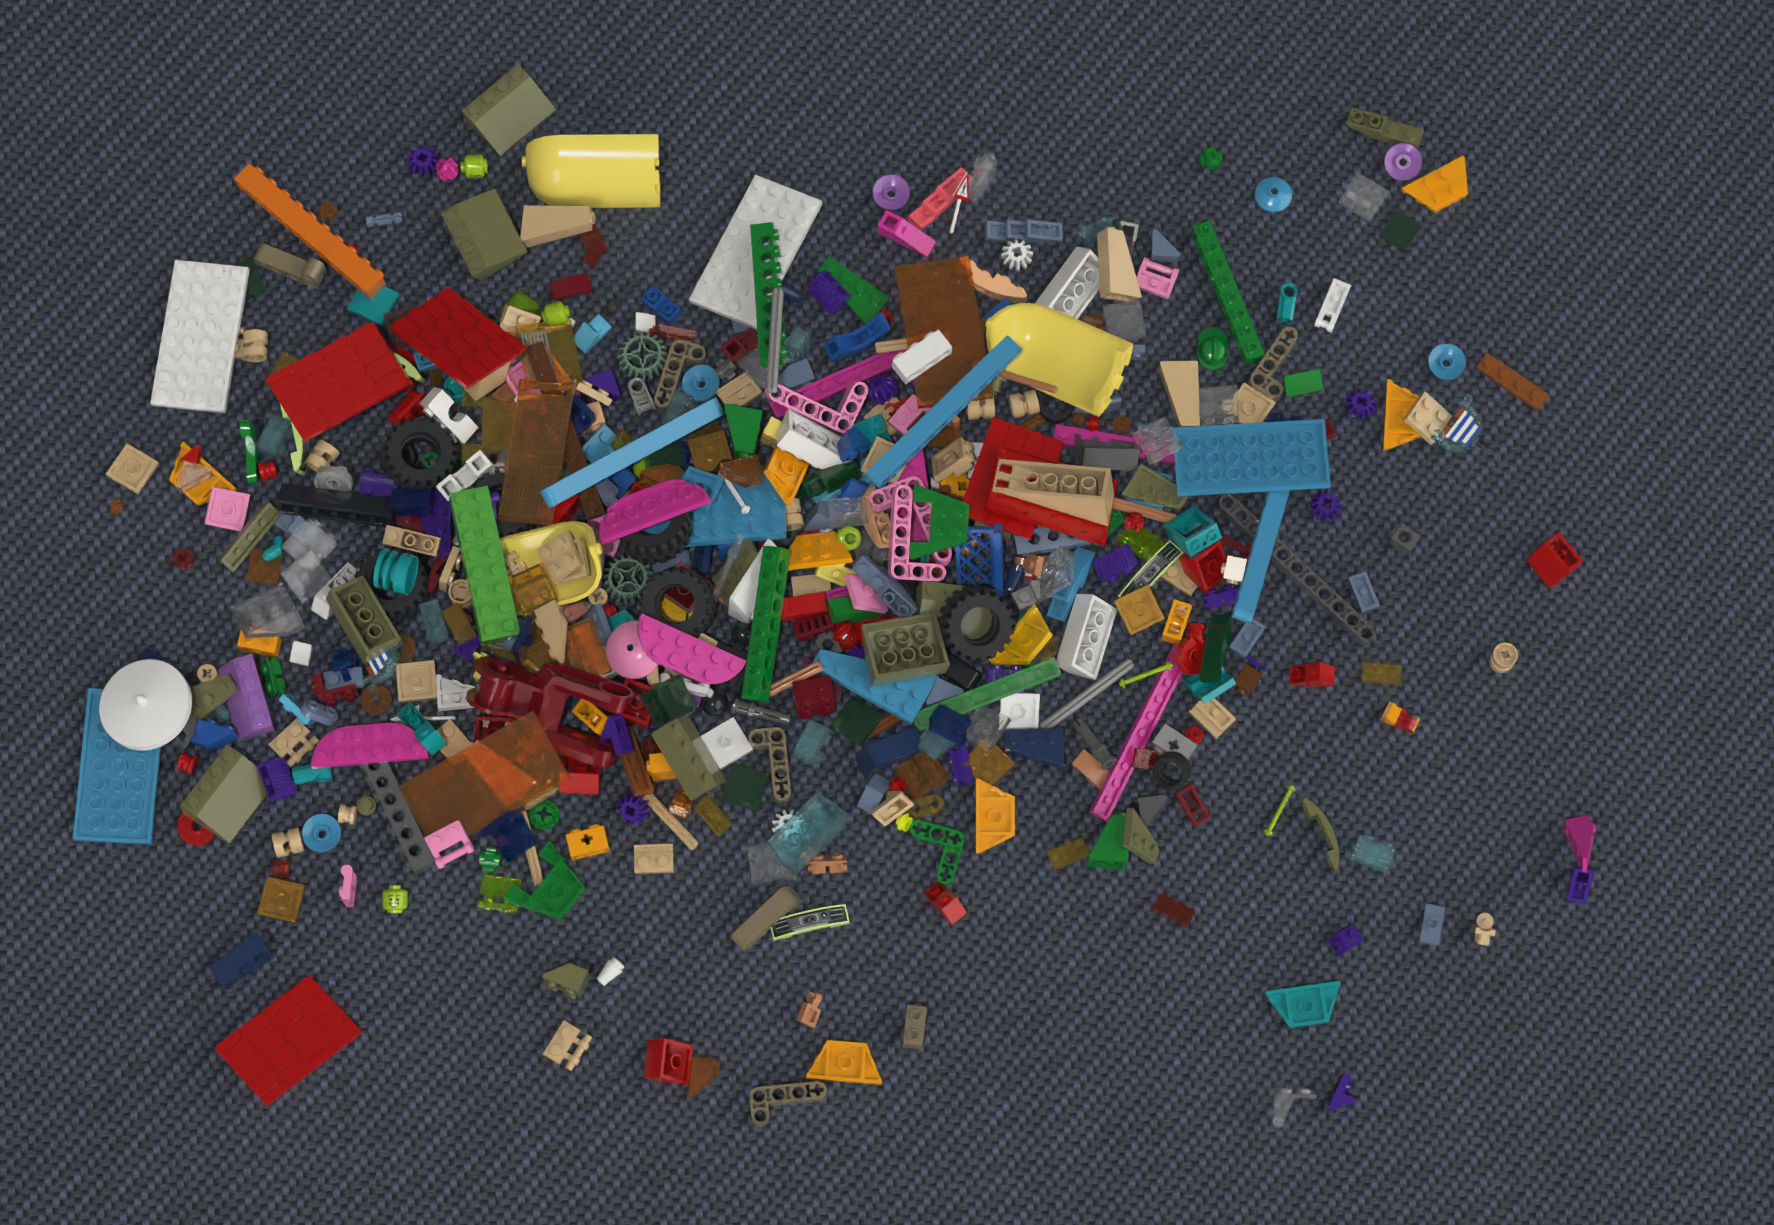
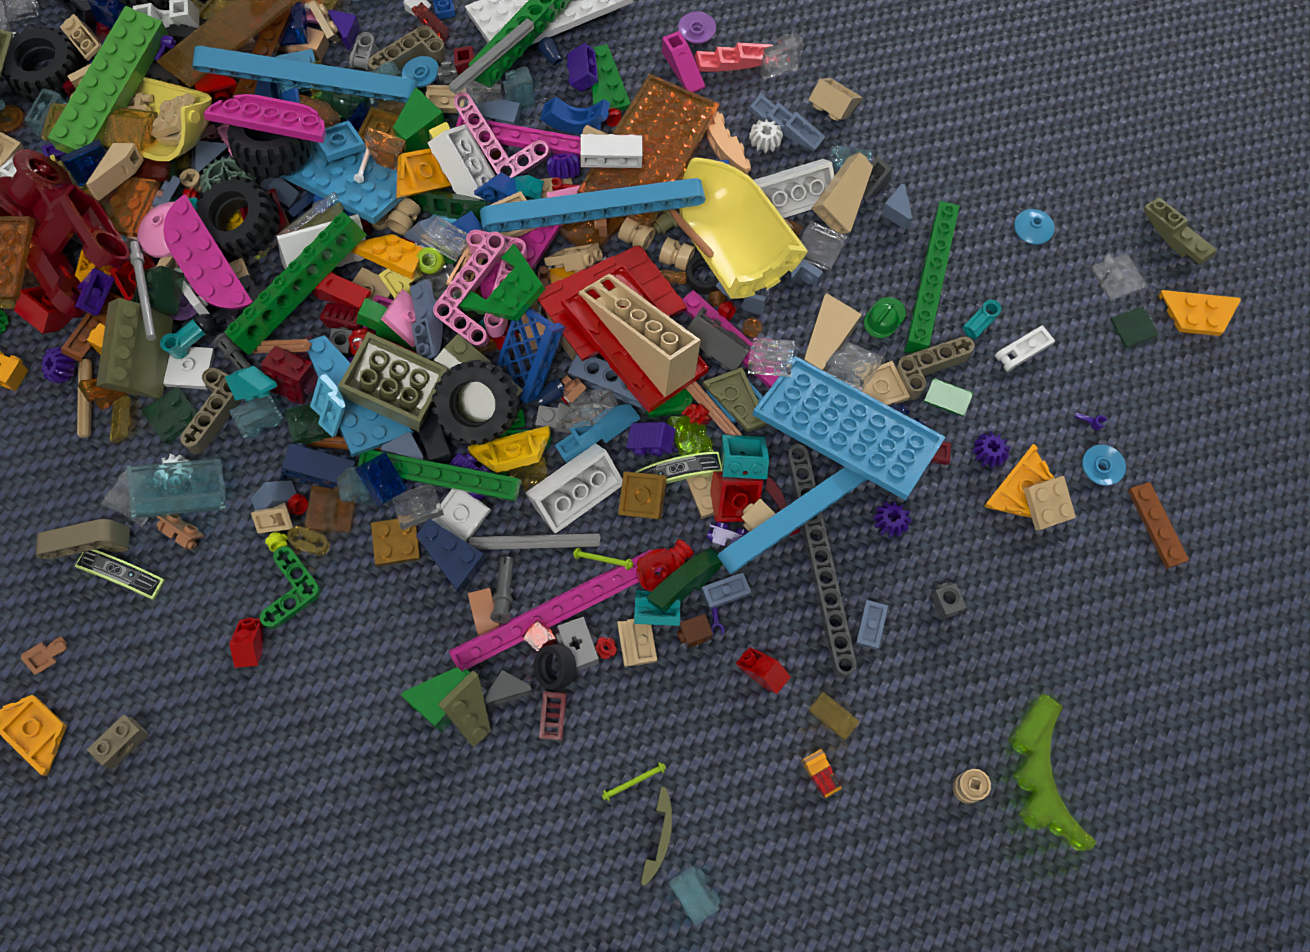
camera: 35 degrees right, 5 degrees down
(395, 571) = (33, 41): teal wheel -> none
(635, 356) = (391, 17): sand green gear -> none
(638, 688) = (137, 261): none -> light grey bar
(653, 858) = (42, 422): tan plate -> none
(712, 722) = (179, 343): none -> teal piece
(795, 722) = (249, 384): none -> teal slope
(871, 697) = (328, 404): none -> medium azure slope
(958, 759) = (362, 533): dark purple hinge -> none
(962, 194) = (755, 61): white piece -> none
(993, 816) = (358, 592): light orange wing -> none
(1047, 184) = (834, 99): none -> tan slope
(1068, 854) = (398, 677): clear yellow plate -> none
(1155, 283) = (872, 232): bright pink plate -> none
(1173, 910) = (454, 807): clear red slope -> none
(1176, 622) = (668, 529): light orange brick -> none
(1211, 159) = (997, 162): green gear -> none
(1412, 158) = (1182, 259): medium lavender dish -> none
(1418, 330) = (1093, 421): none -> dark purple hand
(1461, 430) = (1076, 536): torso -> none
(1539, 621) = (1035, 774): none -> clear neon green arch
(1555, 560) = (1091, 724): red slope -> none

